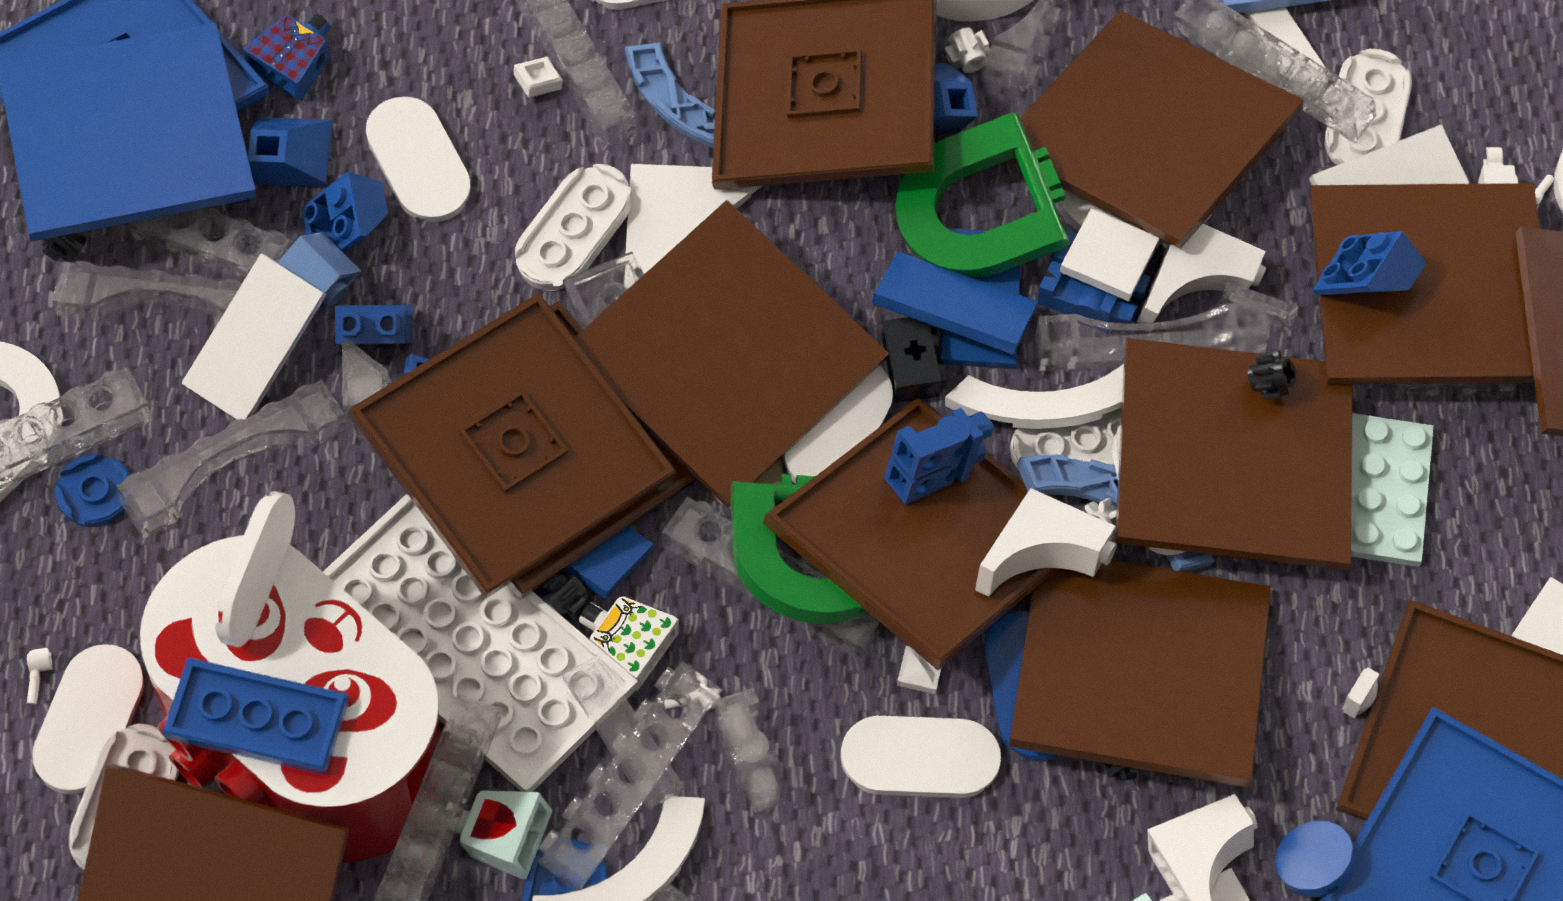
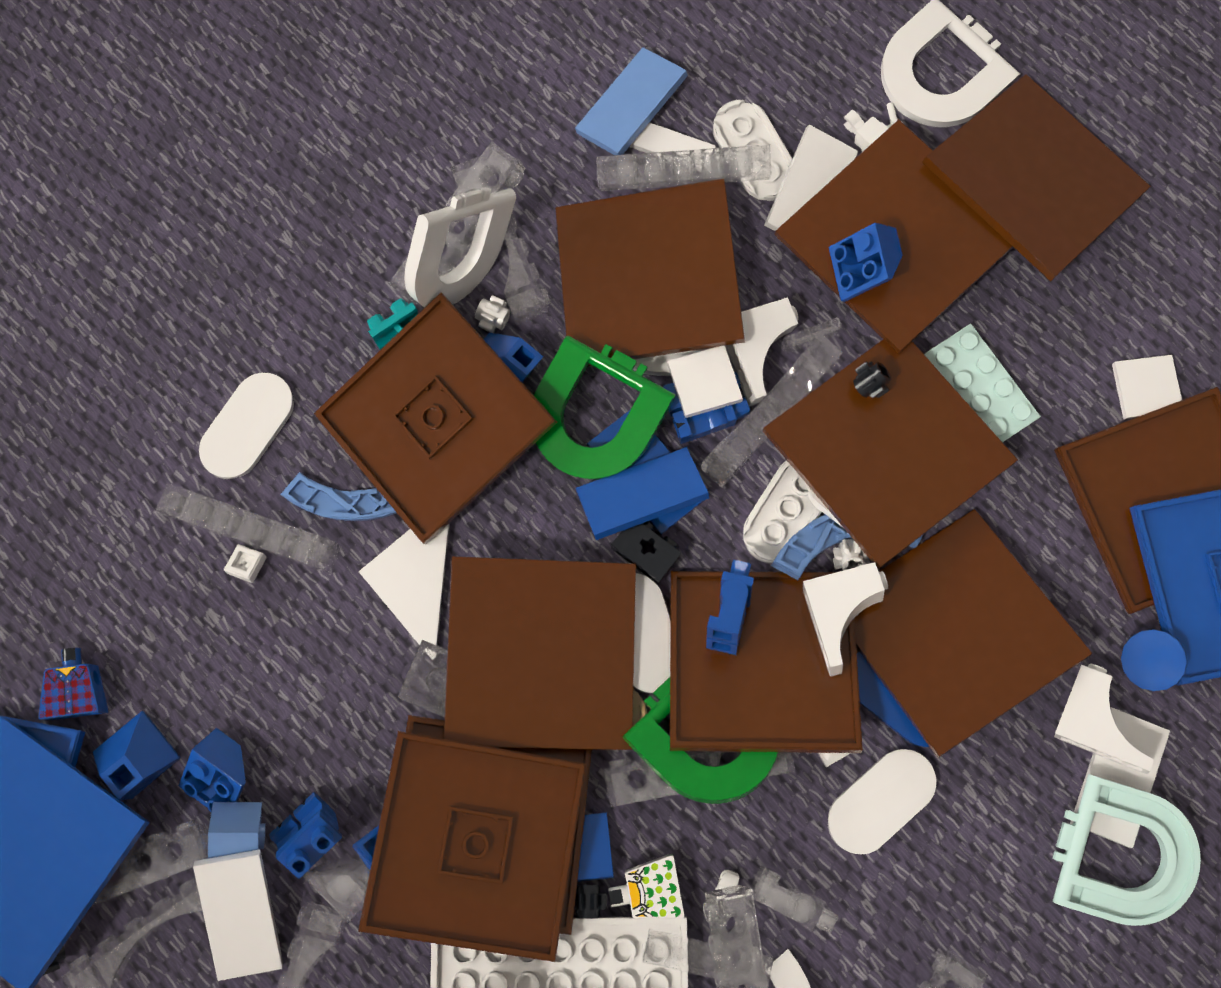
camera: 40 degrees left, 15 degrees up
(418, 159) = (221, 686): white tile -> none
(573, 226) = (363, 646): white tile -> none
(1039, 409) = (749, 516): white tile -> none
(1362, 693) = (1083, 531): white tile -> none

